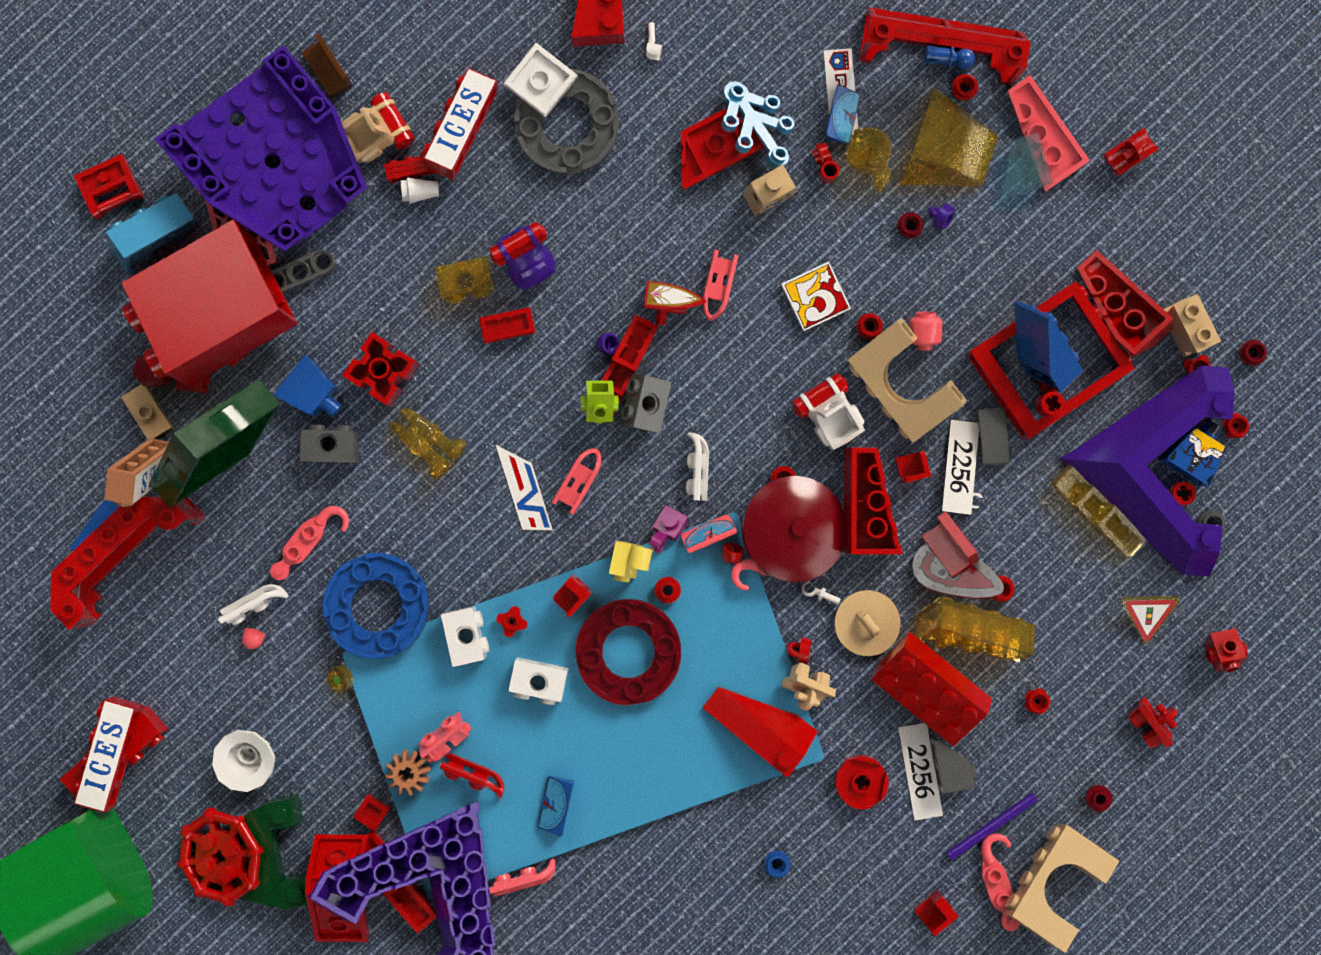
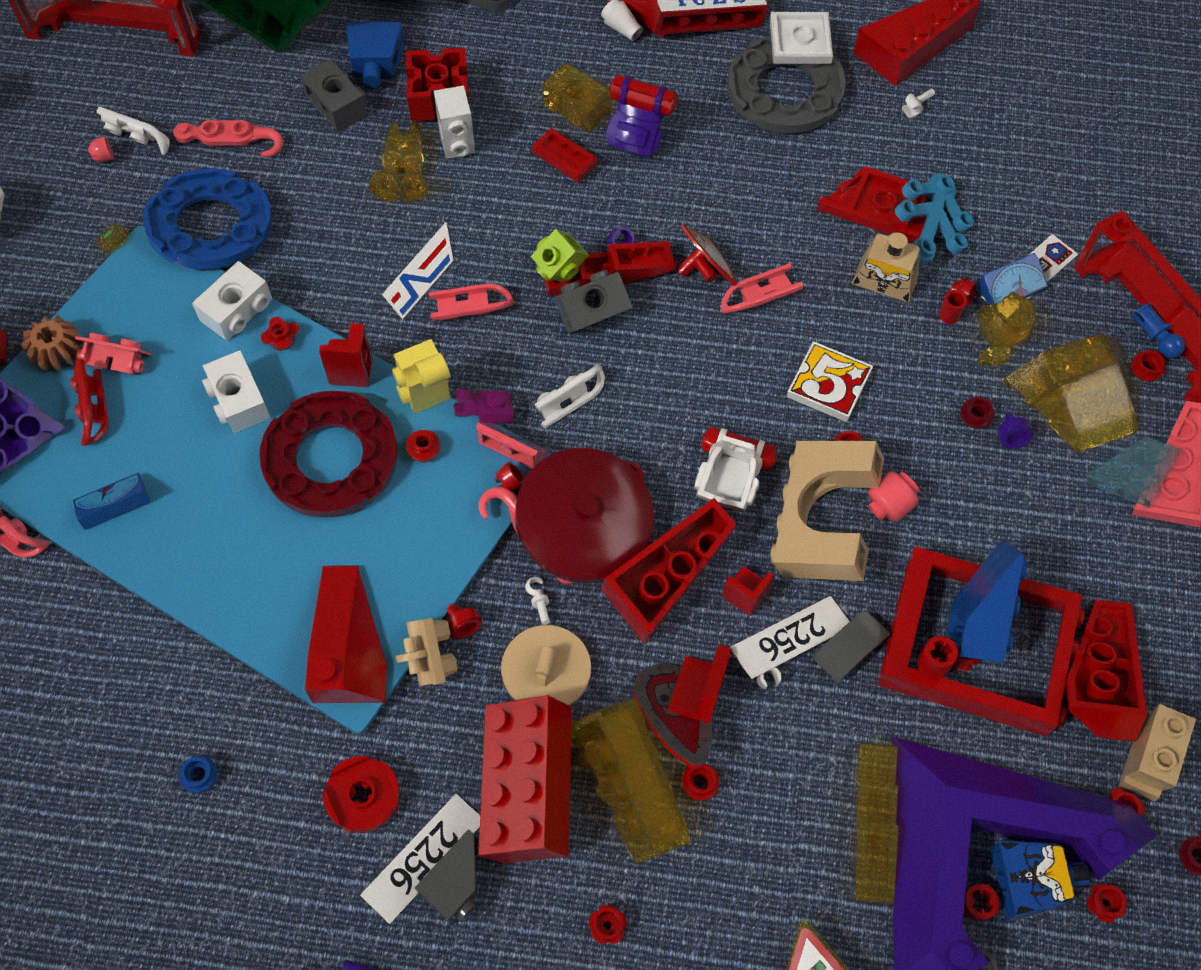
camera: 50 degrees right, 25 degrees down
(429, 385) = (454, 121): none -> white brick

